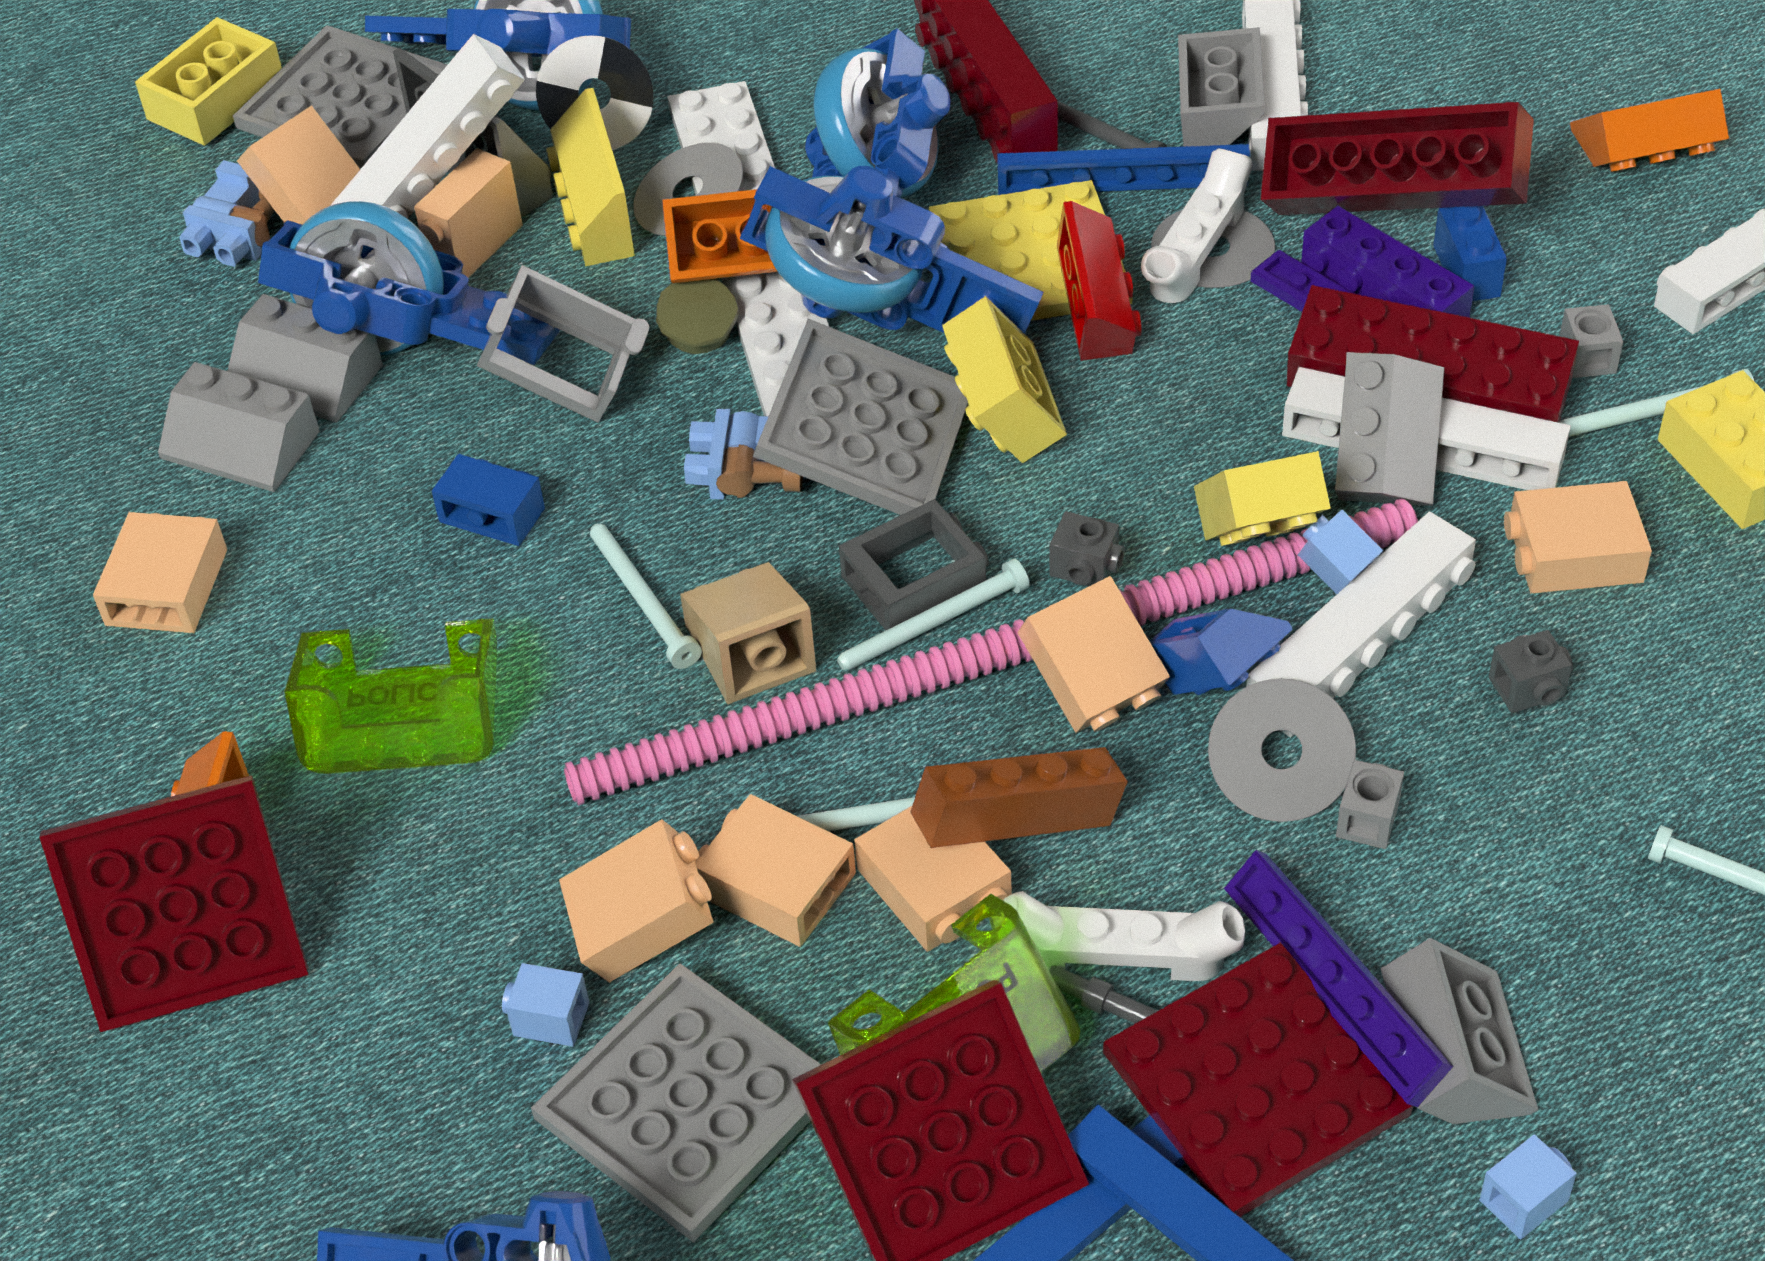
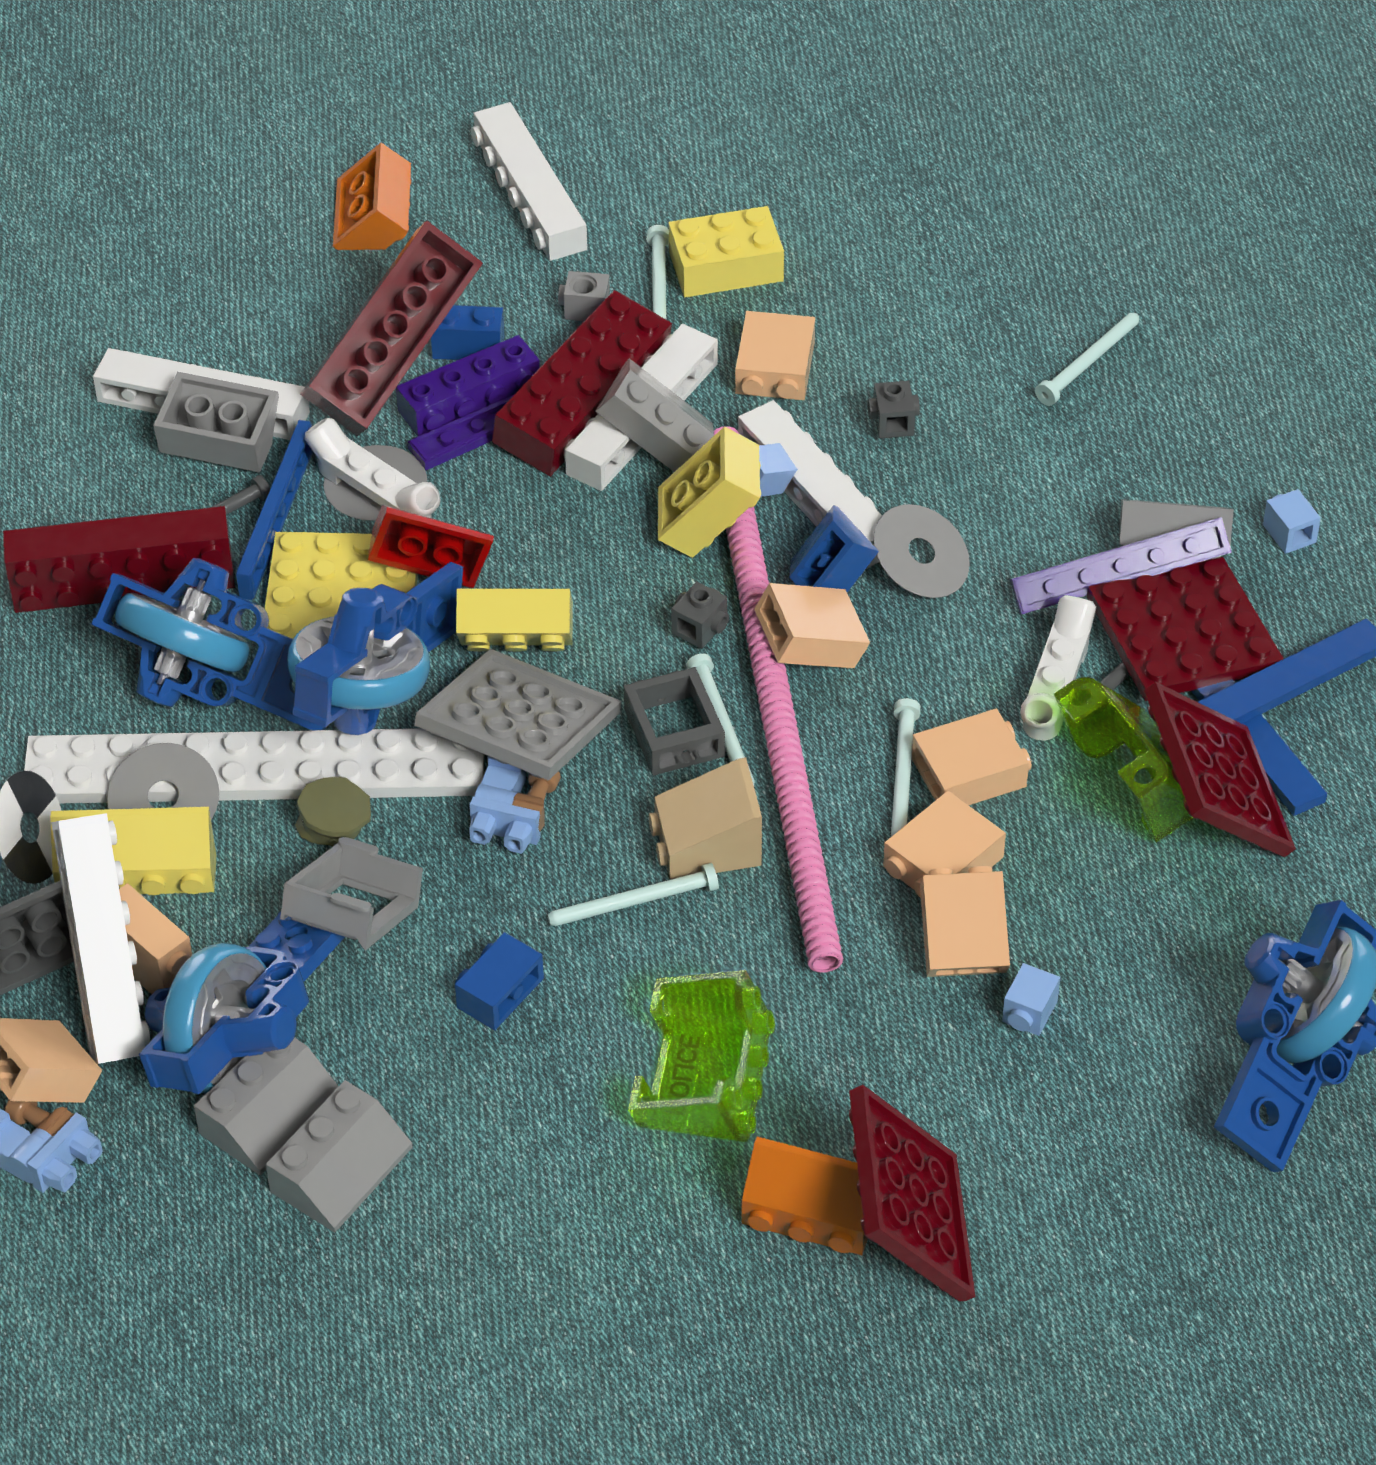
camera: 80 degrees left, 0 degrees up
(160, 572) = (498, 1223): light nougat brick -> none
(681, 1101) = (1128, 932): light grey plate -> none
(706, 239) = (275, 759): orange slope -> none
(1017, 796) = (938, 686): dark orange brick -> none
(1369, 804) = (978, 519): light grey brick -> none

